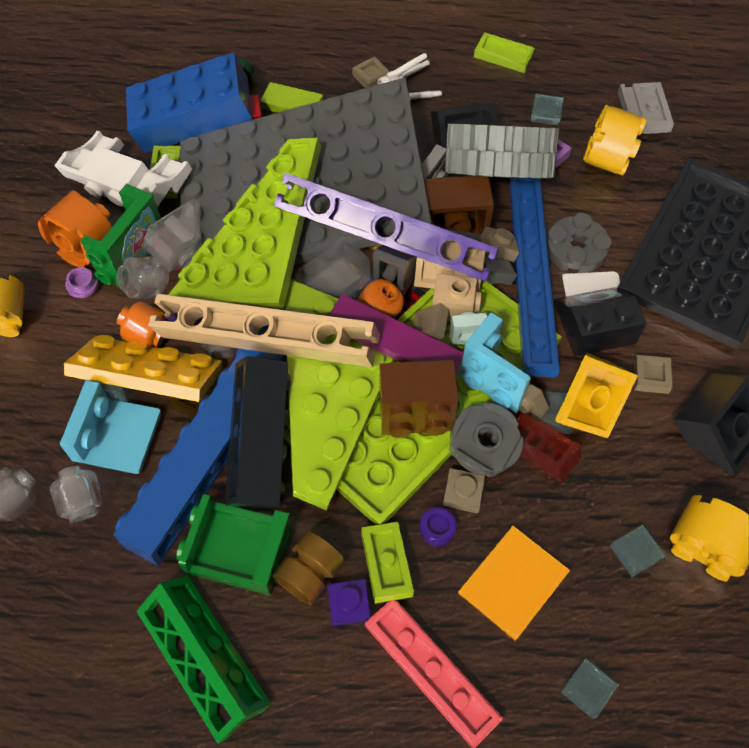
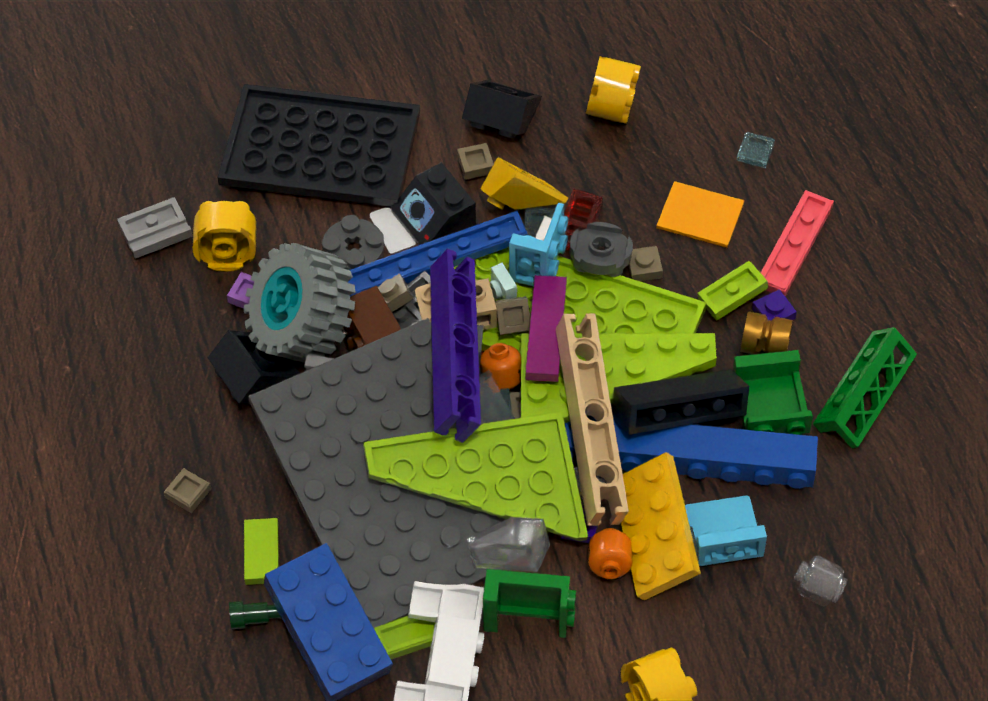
camera: 110 degrees left, 5 degrees down
(69, 222) = (535, 654): orange brick -> none
(76, 494) = (794, 525): clear head -> none
(81, 282) = (584, 640): medium lavender plate -> none
(142, 277) = (564, 565): clear head -> none
(408, 69) = (205, 455): white plant -> none
(417, 397) = (599, 287): reddish brown brick -> none
(438, 526) = (683, 272): dark purple tile -> none
(504, 52) = (107, 374): lime tile -> none
(547, 109) = (182, 314): clear light blue tile -> none
(637, 551) = (637, 143): clear light blue tile -> none

